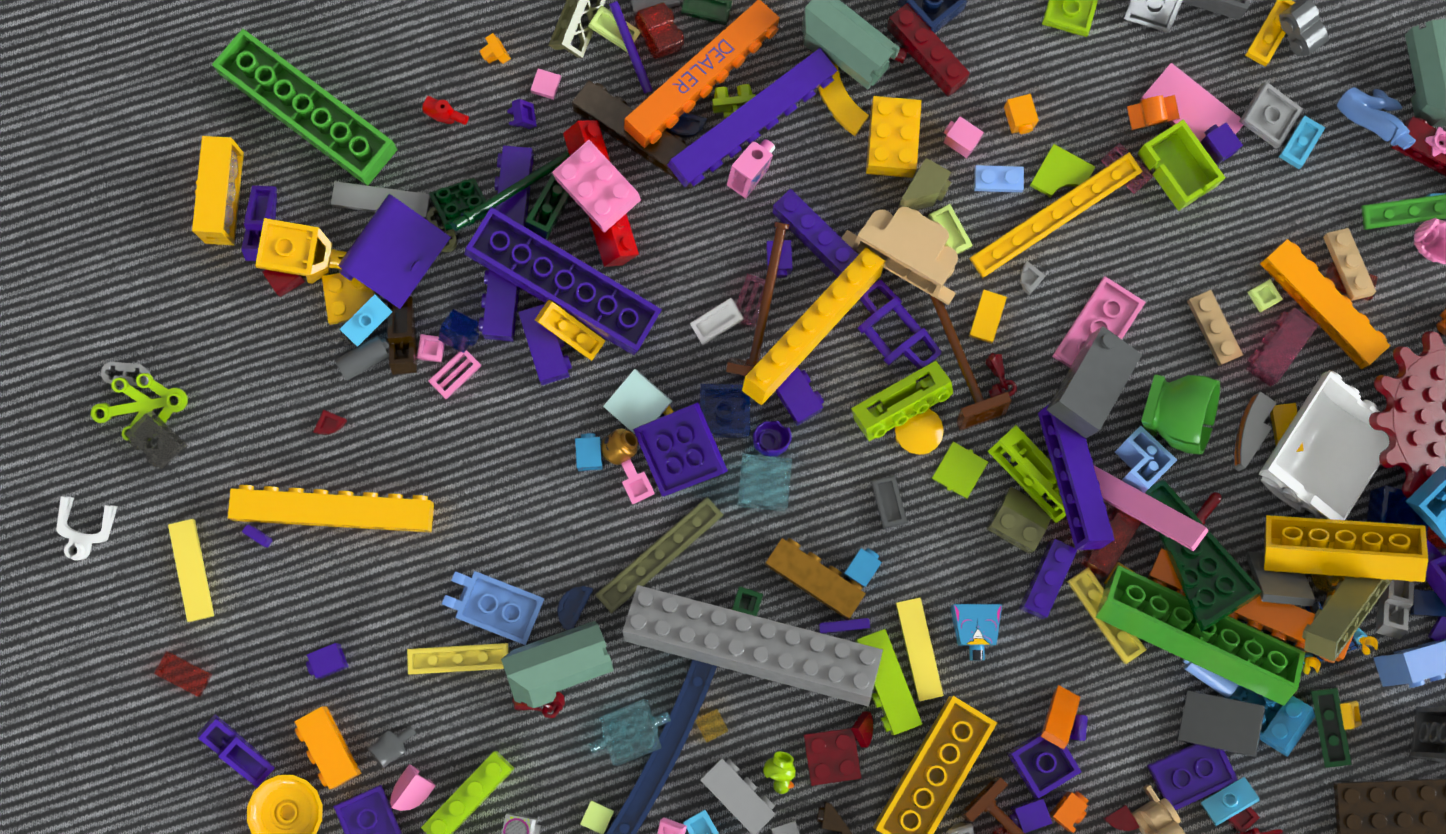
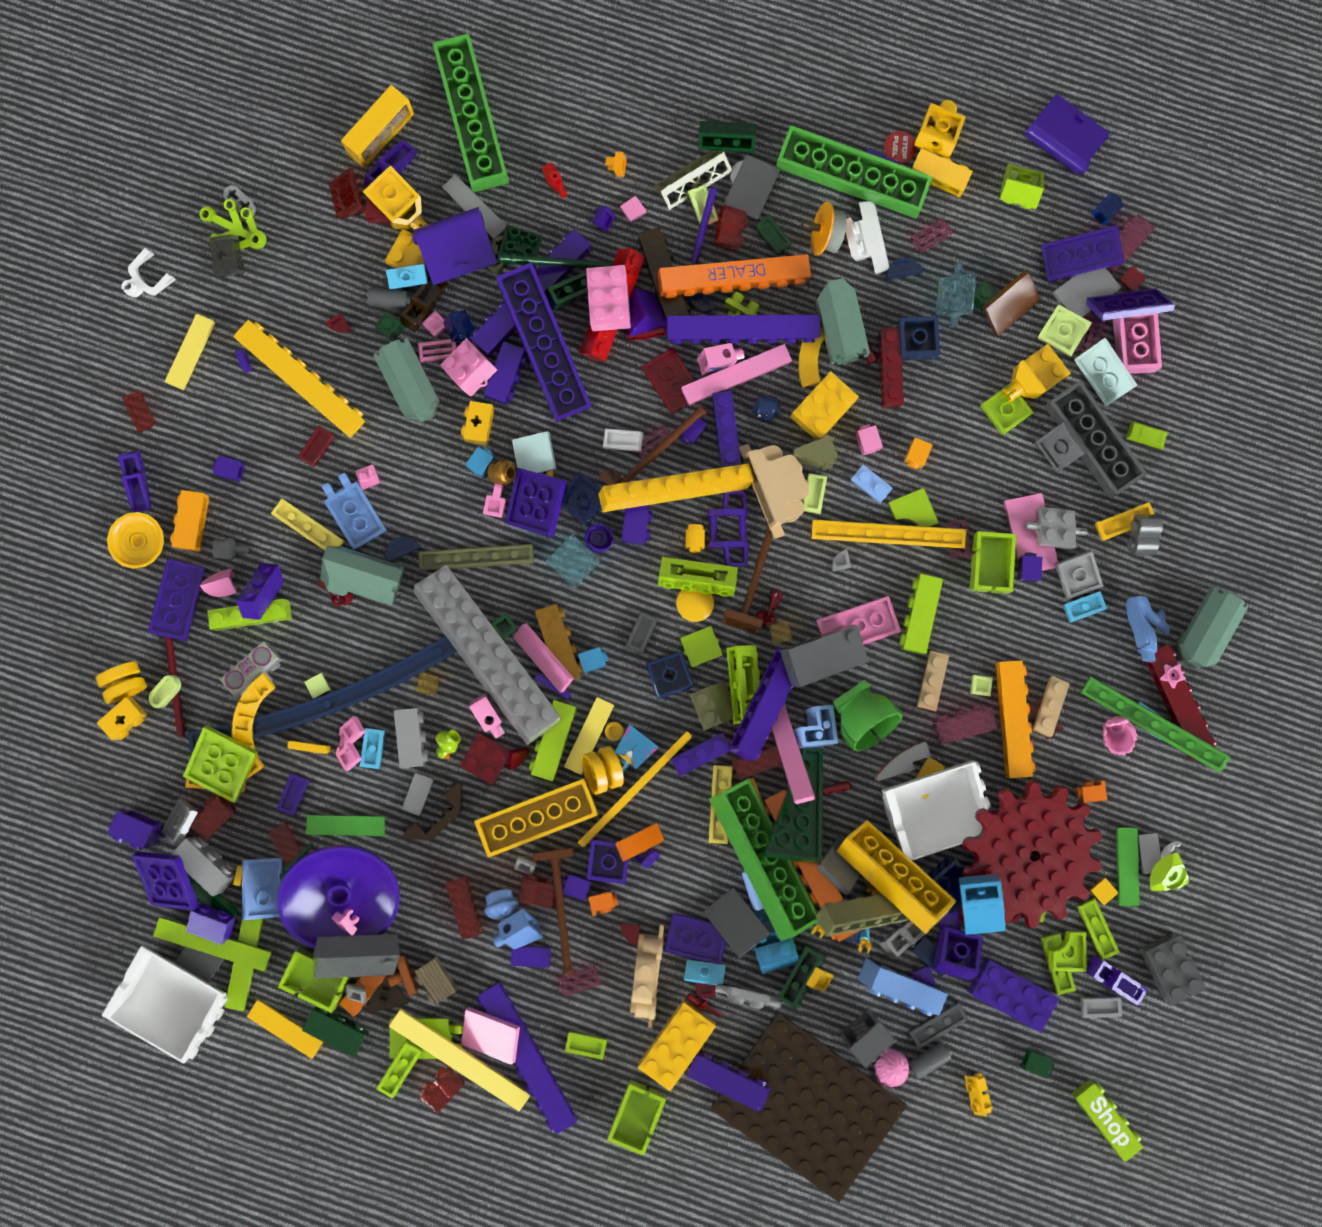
camera: 40 degrees right, 5 degrees up
(236, 285) = (347, 195): none -> clear red slope
(386, 386) = (389, 326): none -> dark green brick
(402, 567) = (316, 446): none -> dark red tile
(449, 426) = (407, 380): none -> sand green brick
(463, 763) = (260, 591): none -> dark purple brick
(481, 558) = (367, 477): none -> bright pink tile
(503, 364) = (468, 367): none -> bright pink brick
(550, 401) = (481, 433): none -> yellow brick
(570, 330) = (525, 376): yellow plate -> none
(630, 732) = (374, 650): clear light blue plate -> none
(642, 174) = (644, 312): none -> dark purple slope
(655, 196) = (657, 332): none -> dark red pin
(719, 225) = (667, 377): none -> dark red tile
(780, 170) = (736, 374): none -> bright pink tile
(792, 706) = (484, 707): none -> bright pink torso
(812, 604) = (543, 657): none -> bright pink tile
(836, 180) = (766, 407): none -> dark blue head
(868, 365) = (695, 538): none -> yellow brick
(941, 624) = (614, 731): none -> yellow tile
(964, 672) = (602, 770): none -> yellow wheel
(968, 520) = (675, 663): none -> dark blue brick
(987, 316) = (794, 565): yellow tile -> none
(1010, 667) = (635, 789): none -> yellow tile
(1028, 394) = (780, 632): none -> clear yellow plate
(1151, 269) = (921, 614): none -> lime brick
(1153, 111) = (1003, 515): orange tile -> none
(1213, 86) = (1056, 528): none -> light grey plate
(1286, 796) = (740, 996): none -> light grey plate

